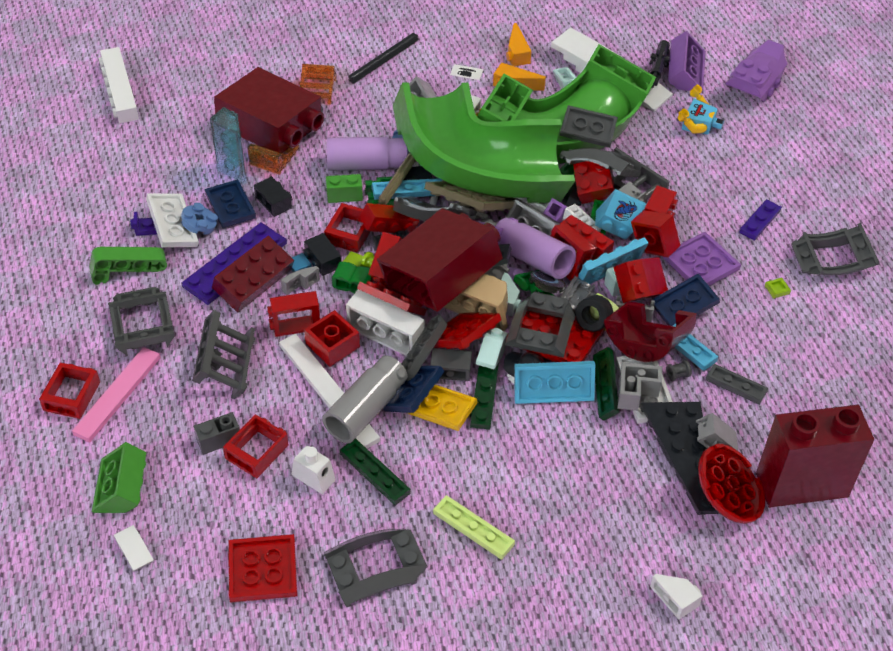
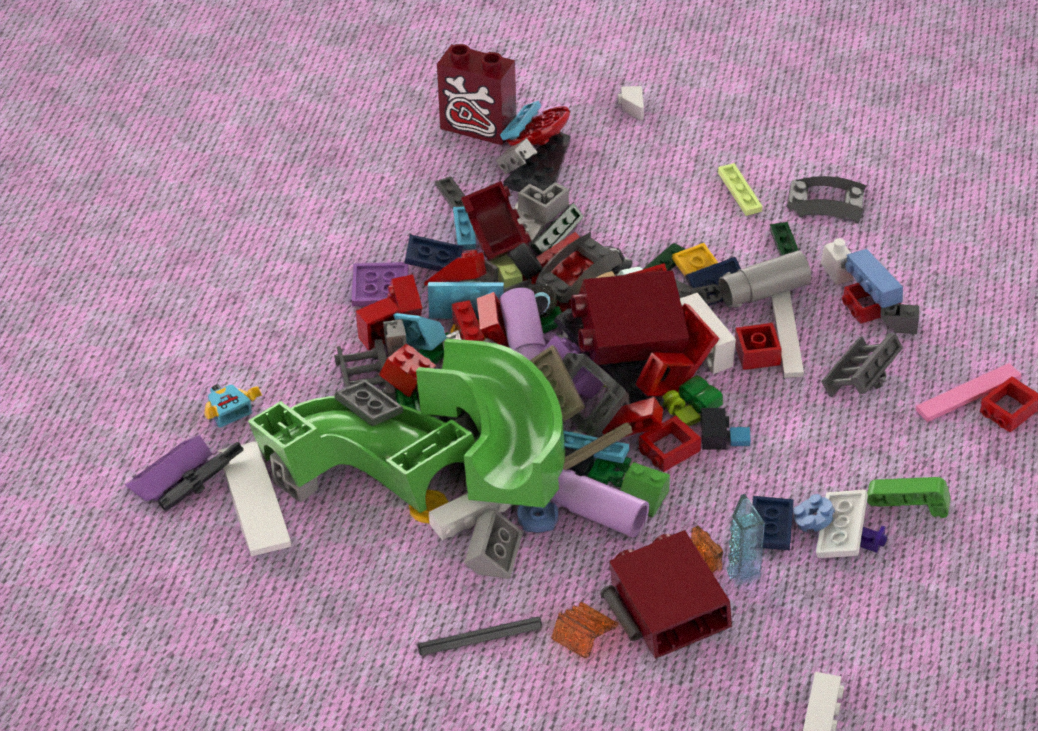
camera: 145 degrees left, 5 degrees down
(119, 480) = (996, 319): bright green slope -> none
(133, 548) = (1004, 275): white slope -> none
(144, 337) = (923, 412): dark grey wedge -> none
(201, 281) = (800, 464): dark purple plate -> none
(252, 273) = (794, 428): dark red brick -> none
(257, 440) = (874, 278): none -> medium blue brick
(262, 568) = (911, 225): red plate -> none
(273, 196) = (722, 505): black brick -> none
(290, 304) = (774, 384): red window -> none
(304, 277) = (745, 414): light grey slope -> none
(466, 72) = (401, 579): white sticker -> none
(518, 49) = (322, 573): light orange slope -> none
(532, 80) = (364, 531): light orange slope -> none
(554, 382) = (603, 237): medium azure plate -> none
(563, 80) = (307, 500): light aqua slope -> none
(611, 160) = (373, 358): dark grey wedge -> none
(757, 488) = (520, 121): none -> medium azure plate
(760, 70) = (124, 417): medium lavender slope -> none
(760, 219) = (286, 298): dark purple plate -> none
(777, 288) = (340, 243): lime tile -> none
(855, 237) = (250, 219): dark grey wedge -> none

